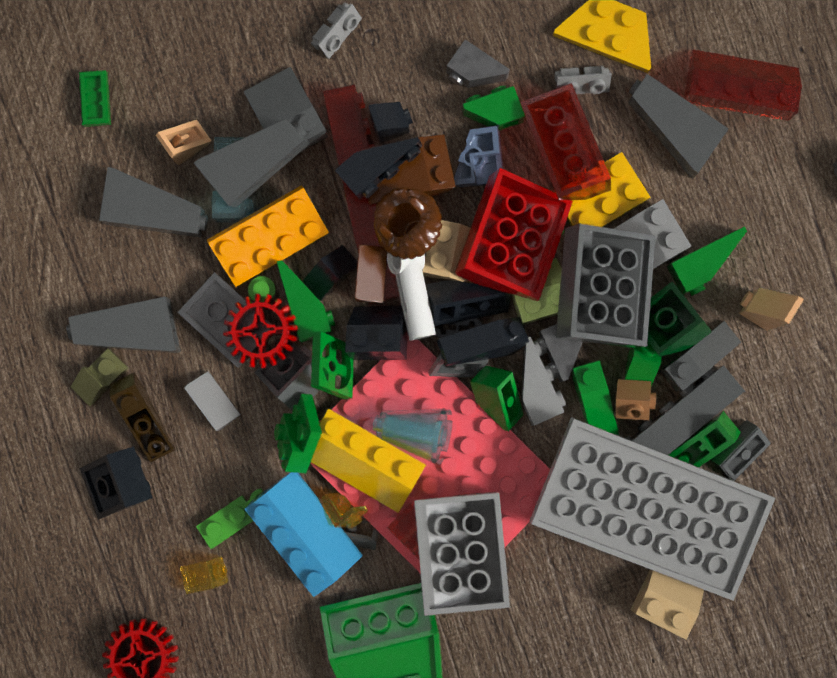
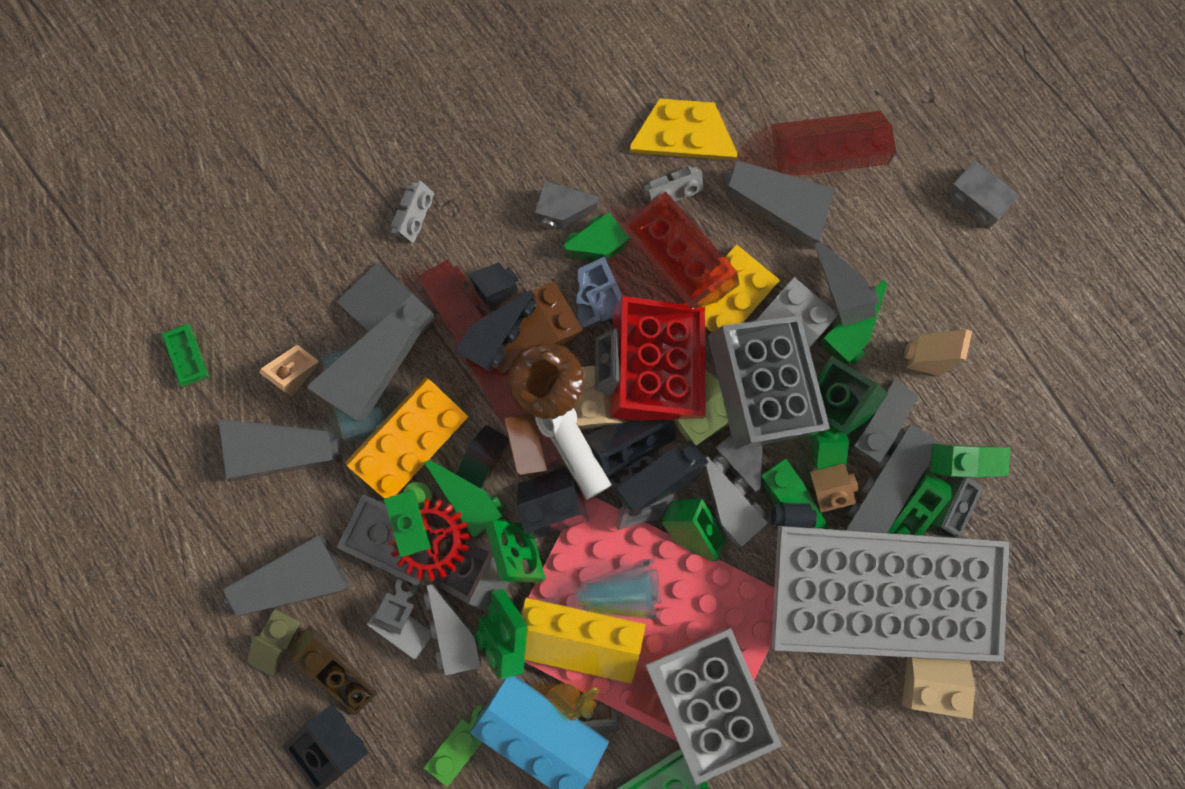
camera: 25 degrees left, 5 degrees down
(212, 382) = (395, 609): none -> dark grey plate
(245, 311) = (407, 523): none -> green plate
(257, 424) = (455, 638): none -> light grey slope
(467, 223) = (607, 362): none -> dark grey slope
(588, 412) = (793, 515): none -> black brick
(708, 224) = (847, 287): none -> dark grey slope
(766, 415) = (970, 460): none -> green slope

